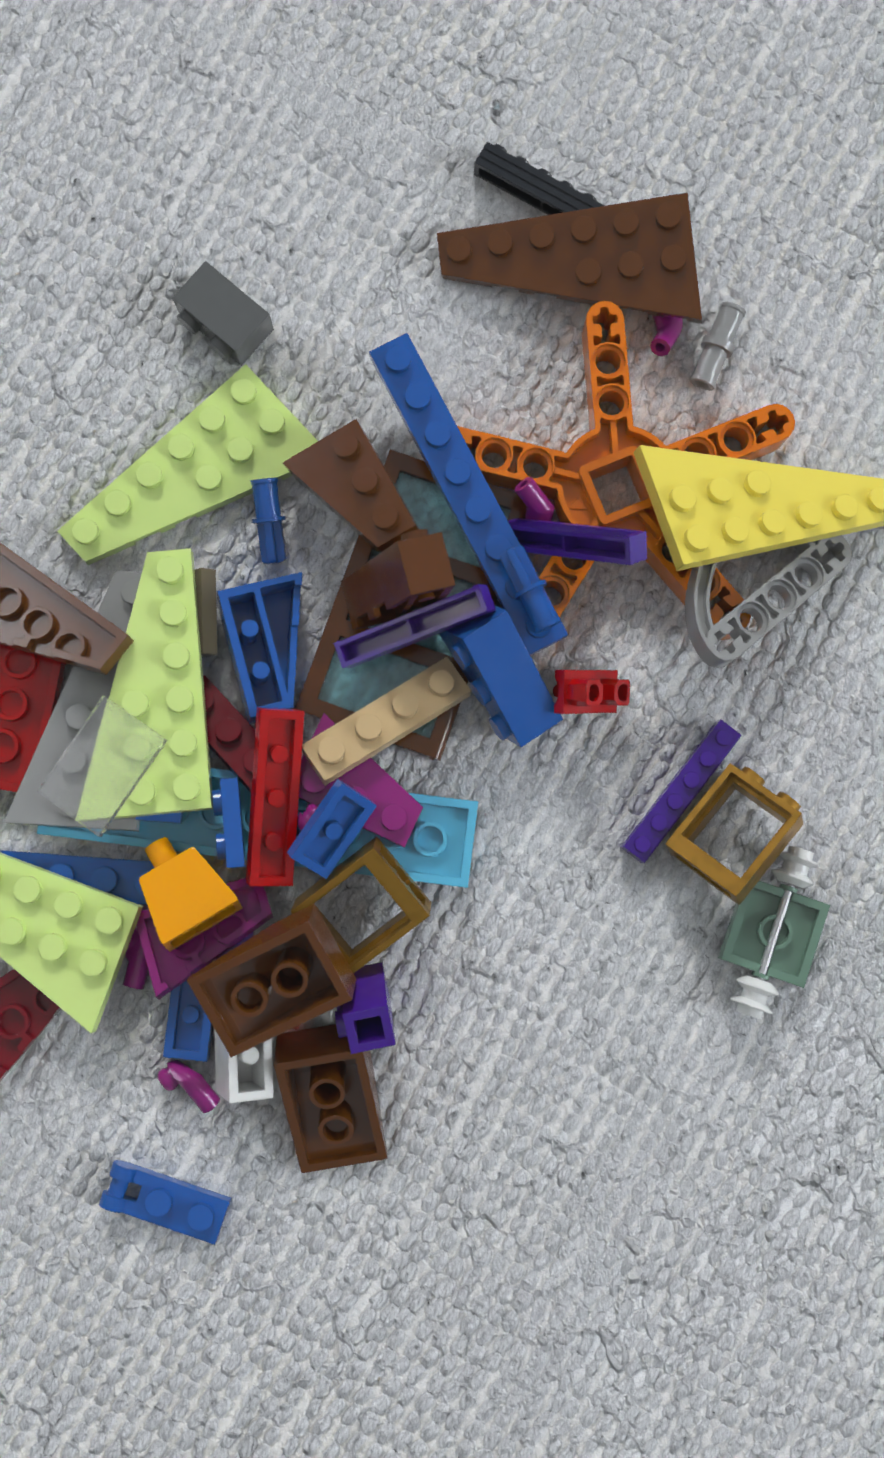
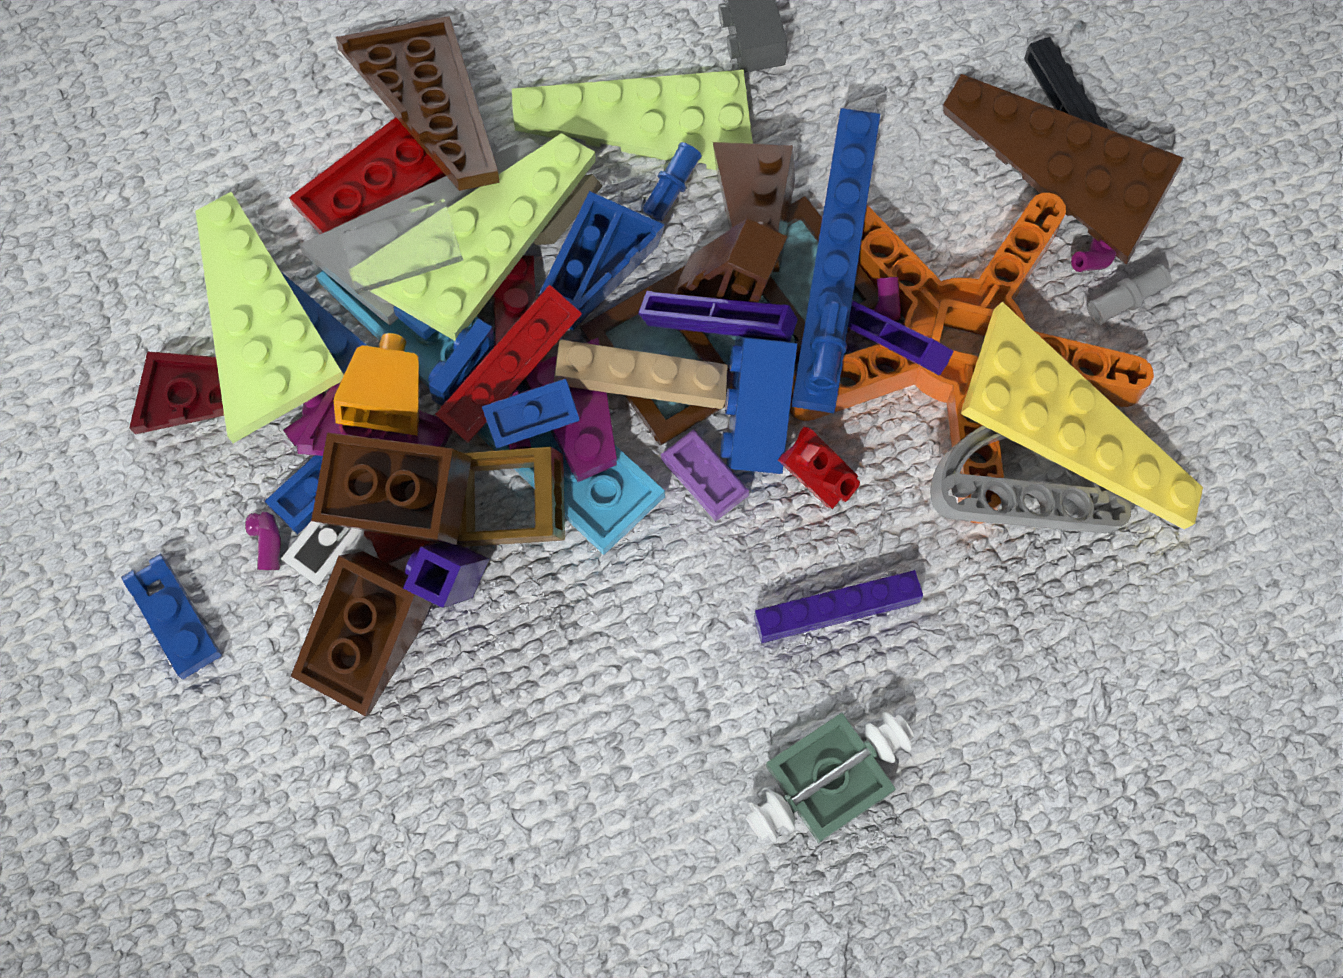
camera: 45 degrees right, 15 degrees down
(496, 761) = (704, 475): none -> medium lavender plate
(750, 785) = (850, 633): pearl gold window -> none

